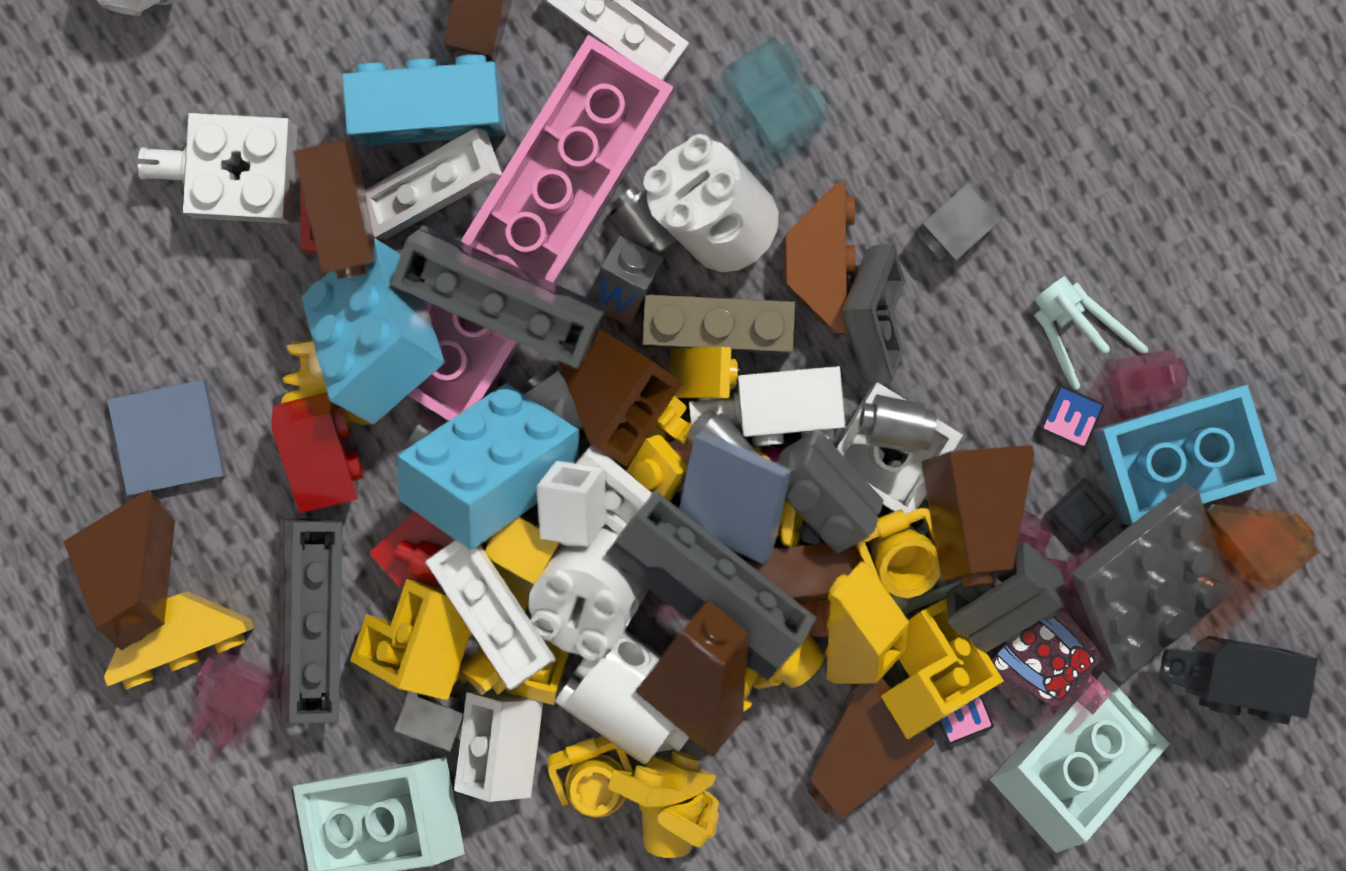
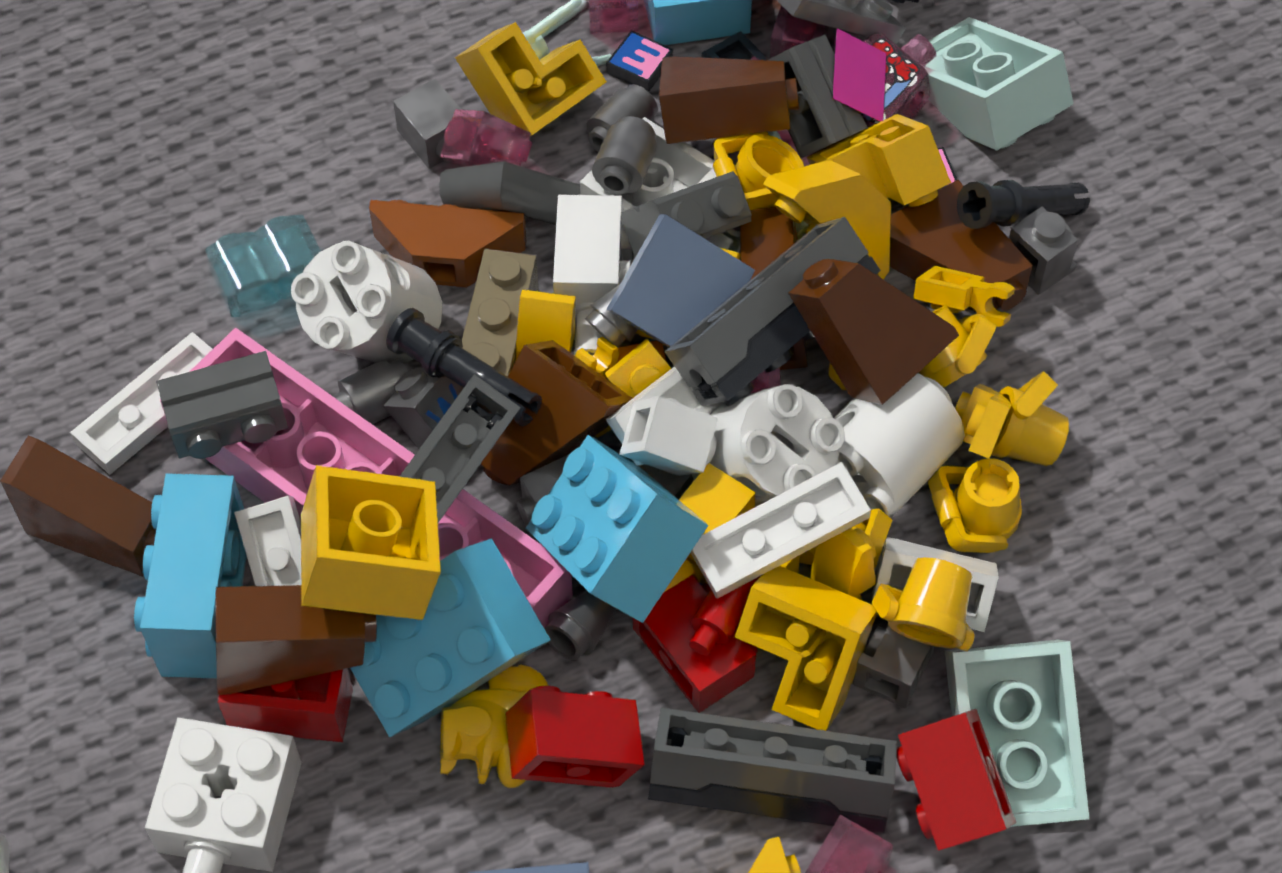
camera: 85 degrees left, 30 degrees down
(313, 773) = (955, 780): none -> red brick
(389, 264) = (369, 543): none -> yellow brick
(442, 745) = (931, 604): none -> yellow piece
(572, 96) = (222, 406): none -> dark grey brick
(646, 287) = (444, 356): none -> black pin
(739, 756) = (964, 352): none -> yellow piece
(801, 750) = (962, 290): none -> yellow plate
(873, 828) = (1049, 241): none -> flat silver brick
(904, 795) = (1010, 202): none -> black pin
(925, 284) = (483, 139): none -> clear pink brick
(984, 409) = (625, 102): none -> flat silver brick
(999, 316) = (520, 85): none -> yellow brick
(1035, 641) = (859, 75): none -> dark pink sticker

